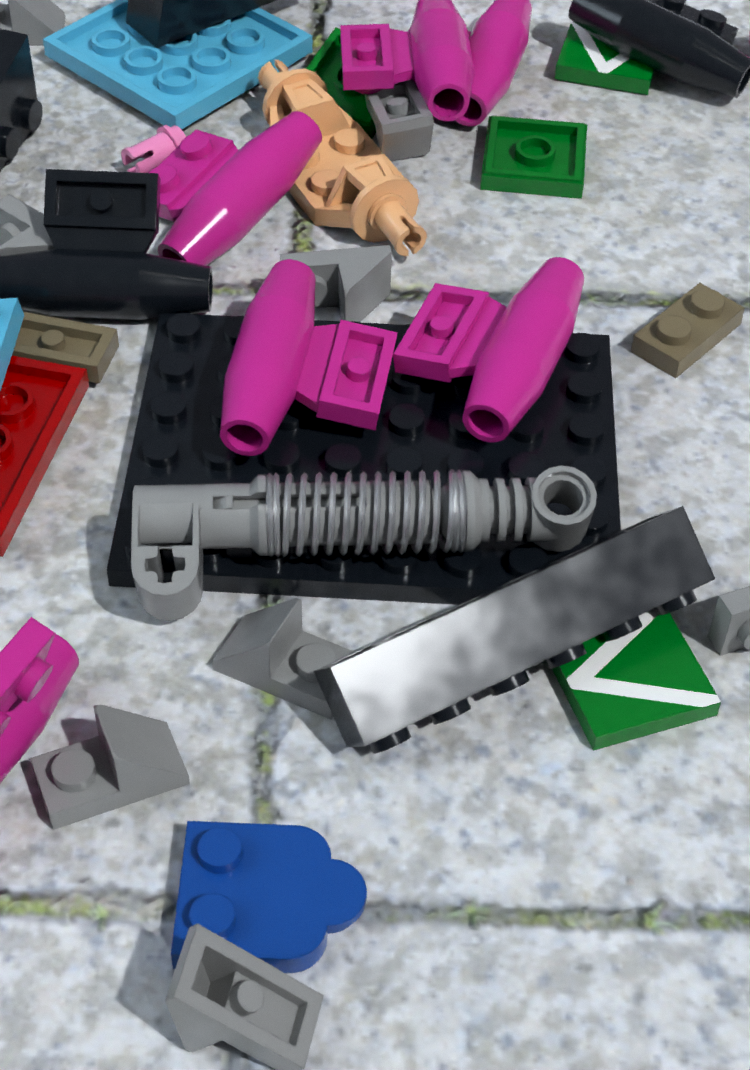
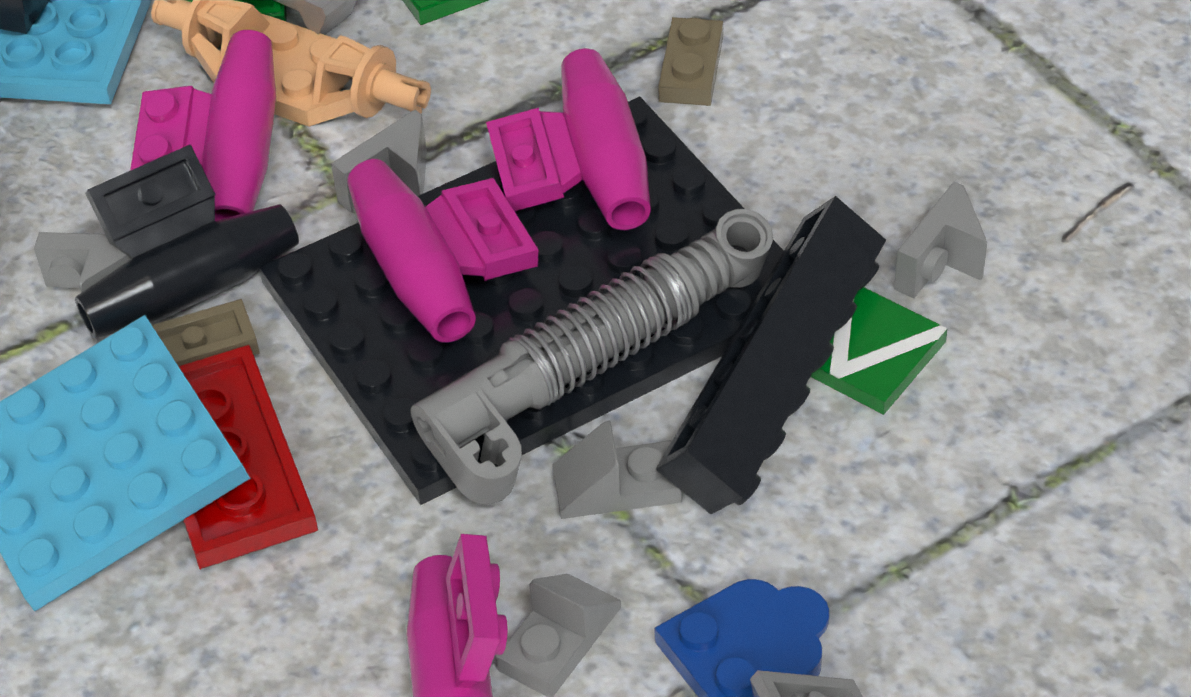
camera: 30 degrees left, 0 degrees up
(153, 150) = (118, 122): bright pink pin -> none

